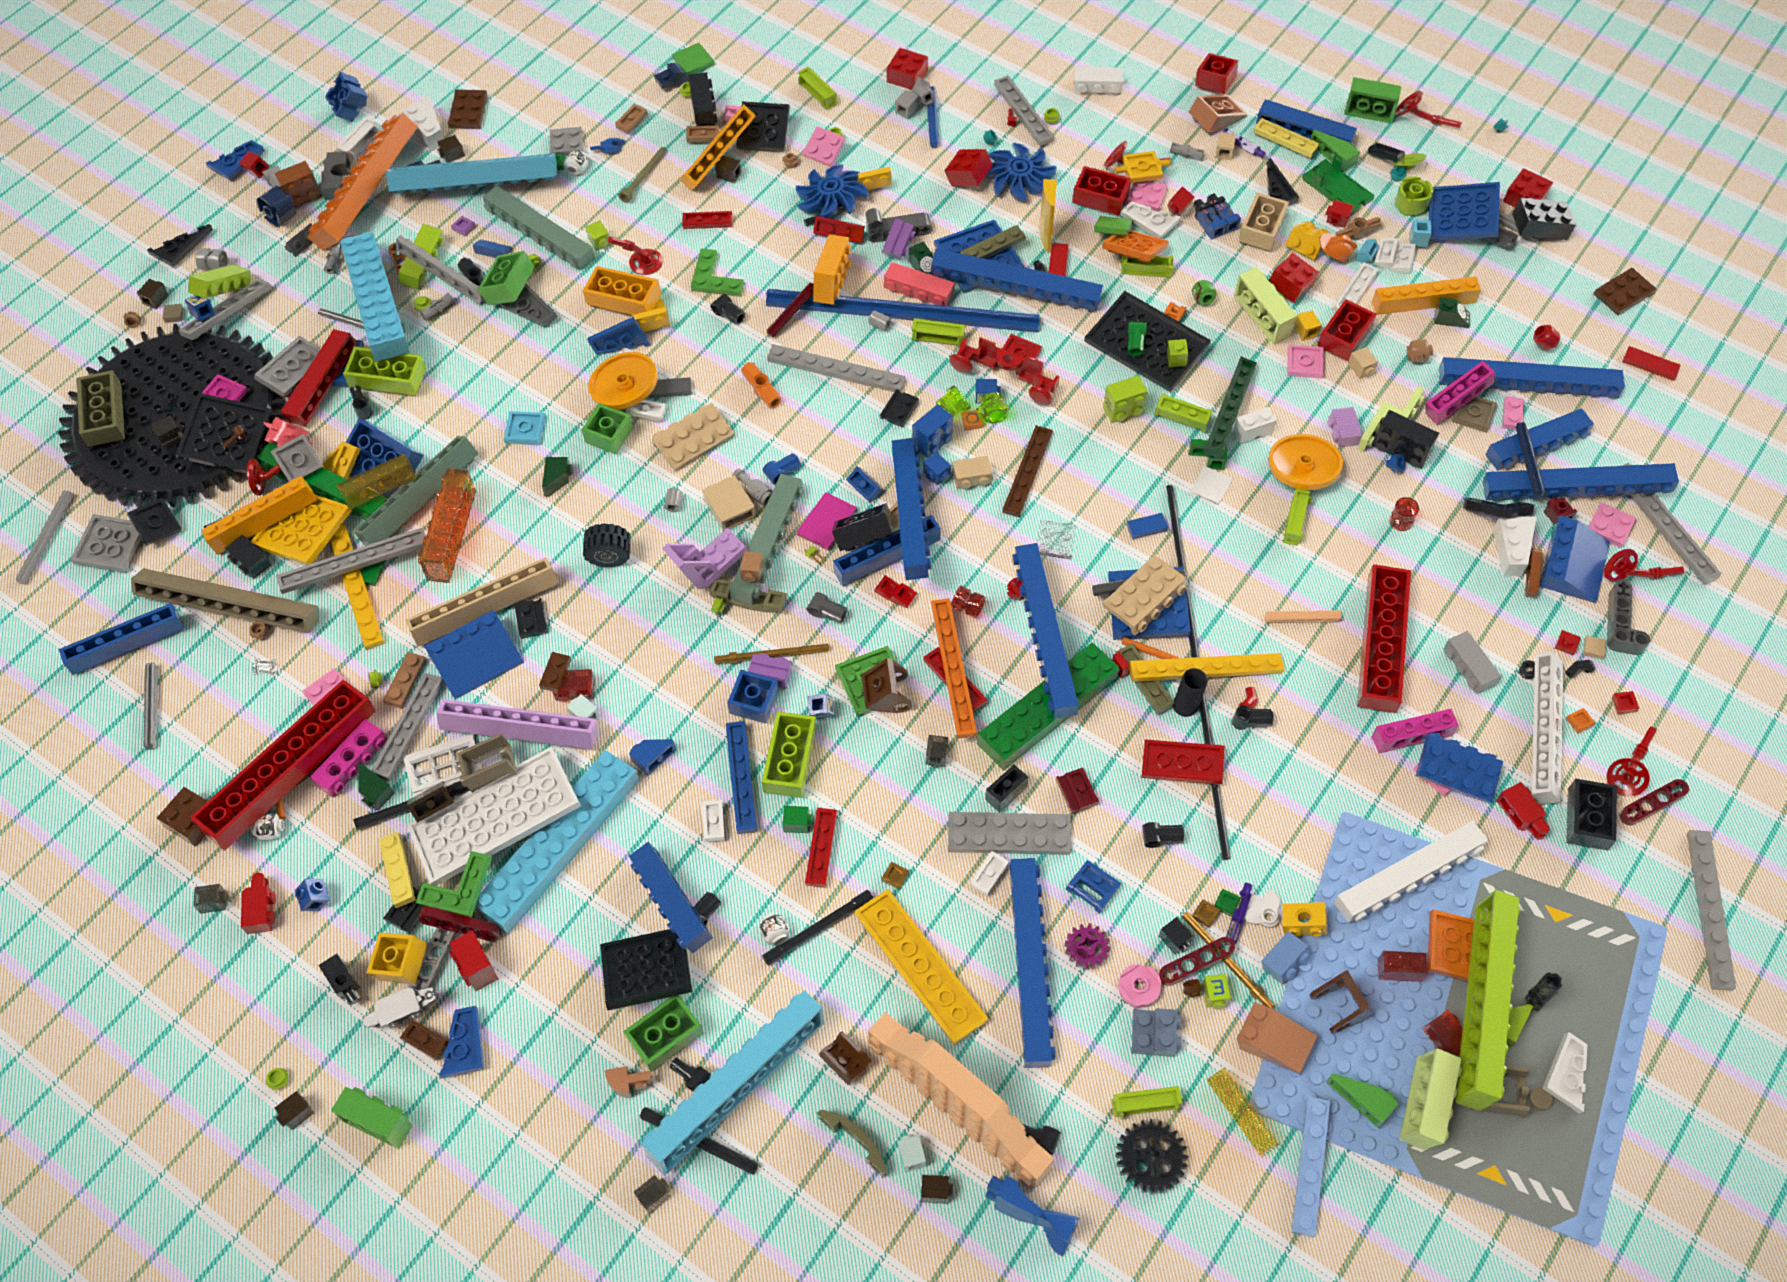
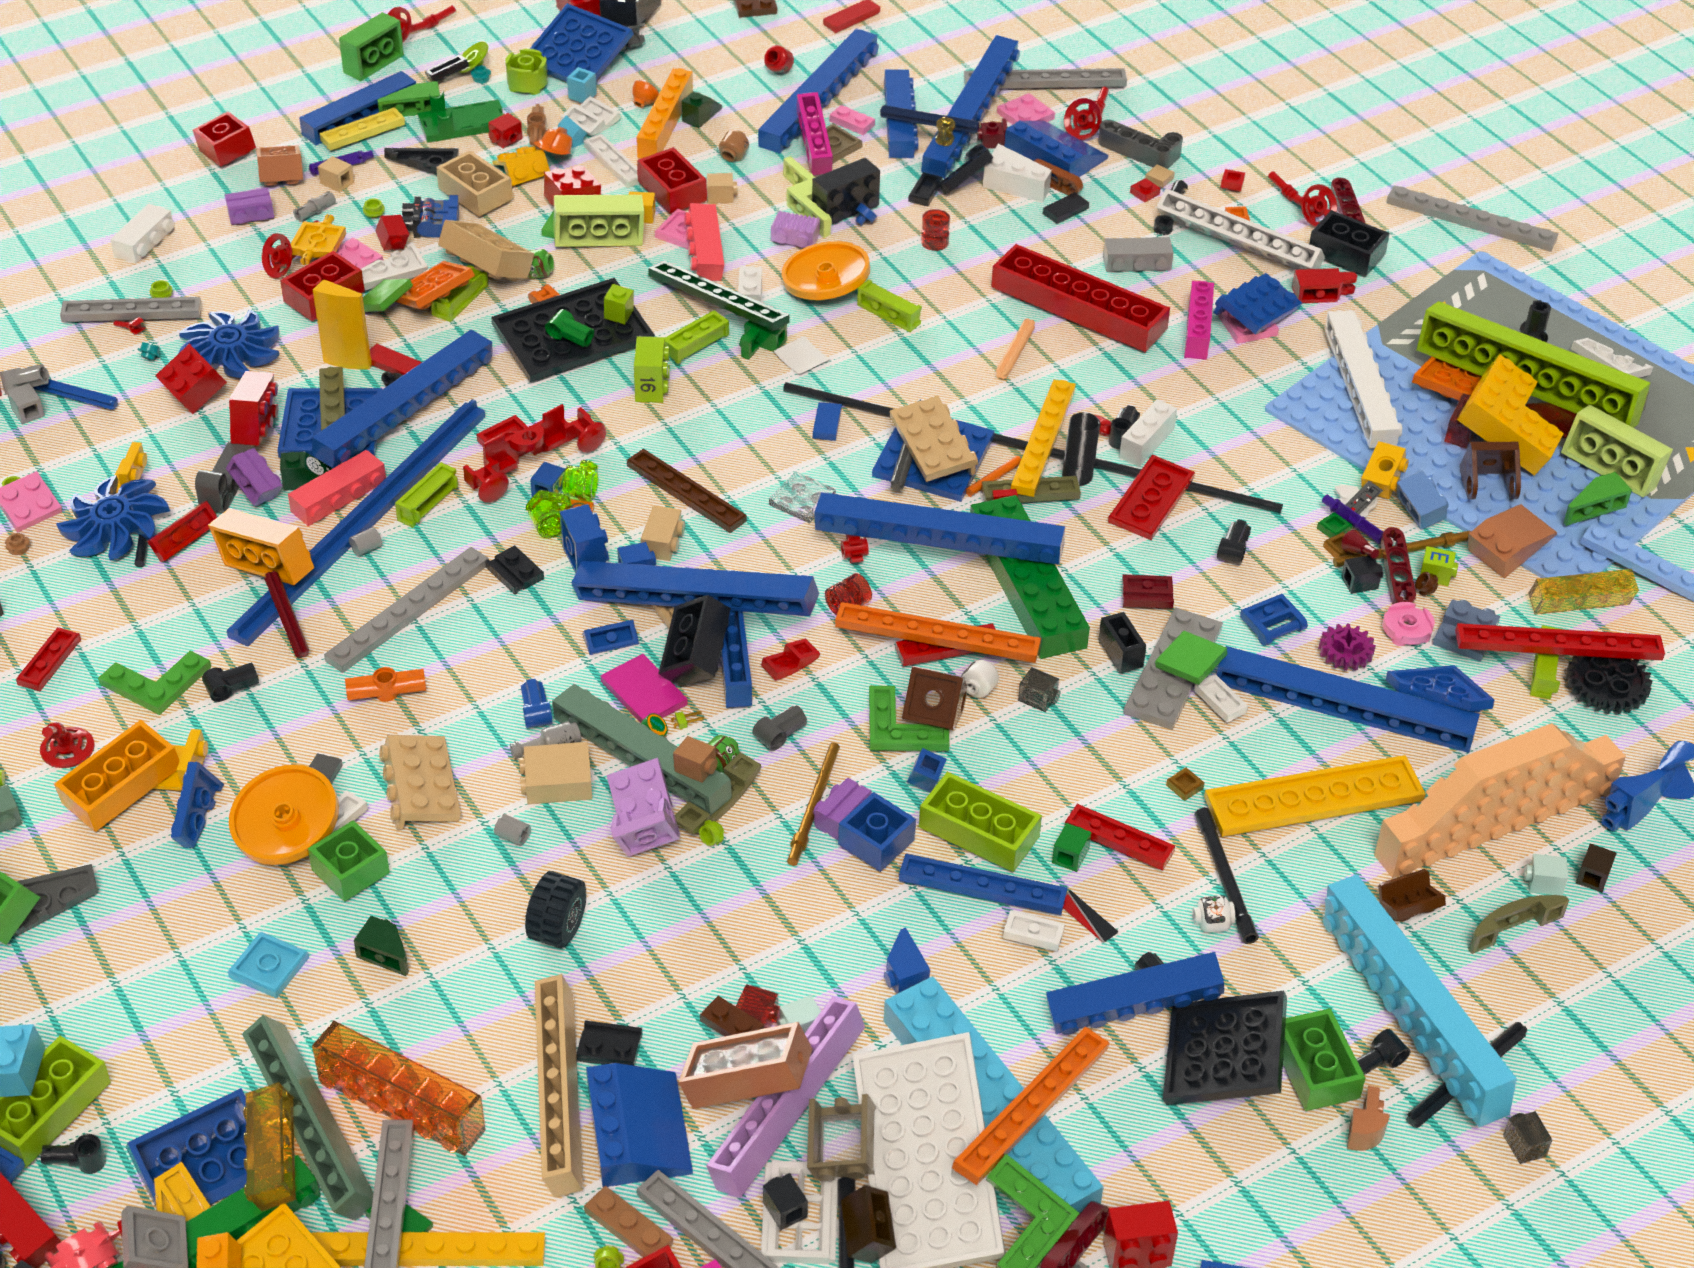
camera: 70 degrees left, 15 degrees down
(437, 751) = (785, 1201): none -> black brick
(517, 690) = (745, 1065): none -> nougat brick
(541, 860) = (1030, 1106): none -> orange plate
(745, 852) = (1088, 917): none -> sticker
(783, 582) = (726, 750): none -> bright green head
(793, 538) = (656, 724): none -> green tile
(928, 710) = (980, 678): none -> white head
(952, 208) = (253, 408): none -> red brick
(1009, 838) = (1191, 657): none -> bright green tile
(1071, 1025) = (1441, 685): none -> blue plate
(1158, 1104) = (1559, 641): none -> red plate
(1161, 118) = (249, 206): none -> medium lavender brick
(1189, 257) = (485, 250): none -> tan brick
(1201, 921) = (1355, 543): none -> dark red cone
(1206, 181) = (373, 208): none -> lime plate
(1253, 736) = (1148, 433): none -> white brick
(1263, 913) = (1364, 497): none -> dark grey sticker
(1289, 377) = (704, 241): none -> coral brick
(1406, 987) = (1500, 415): none -> yellow brick
(1441, 272) = (644, 93): none -> orange brick
(1459, 491) = (925, 189): none -> black tile
(1503, 594) = (1066, 207): none -> black tile
(1516, 471) = (945, 131): none -> clear yellow bush

